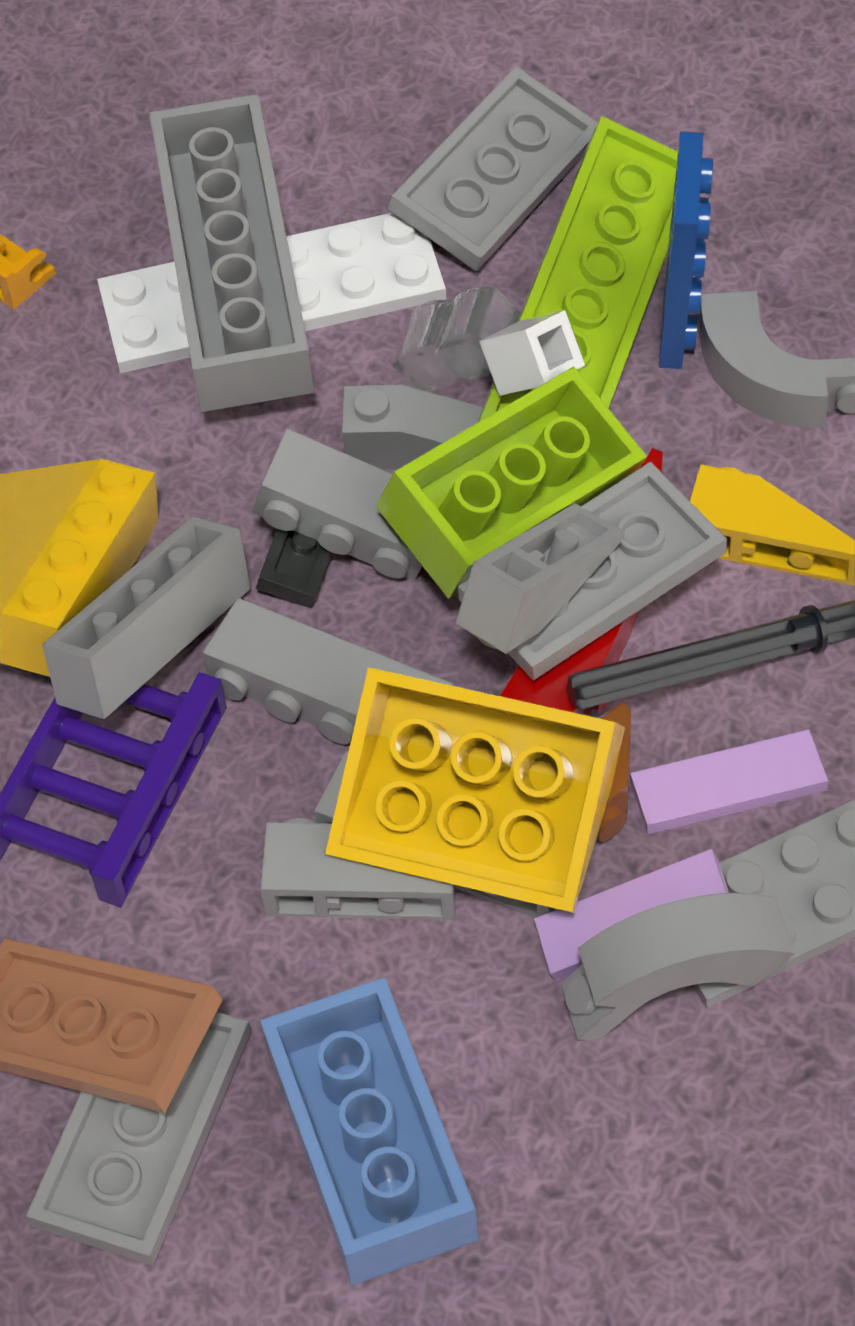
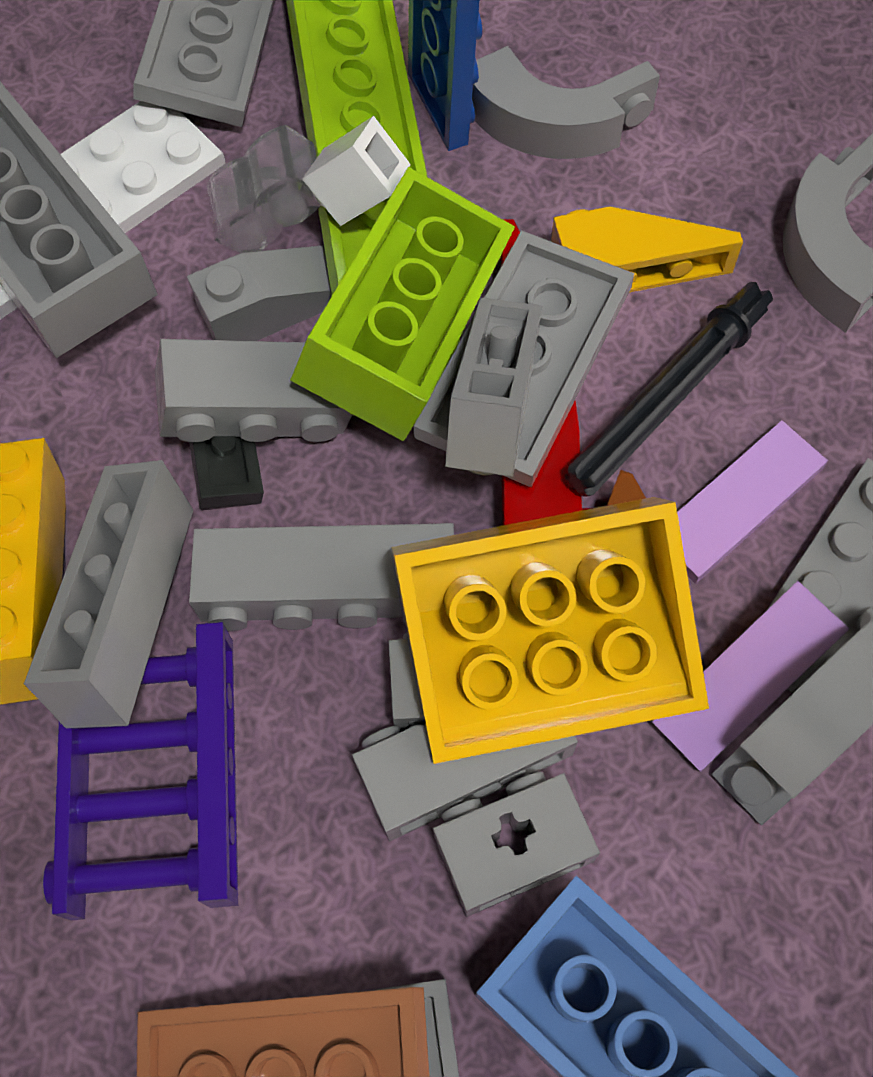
camera: 30 degrees left, 10 degrees up
(328, 944) = (555, 845): none -> light grey brick

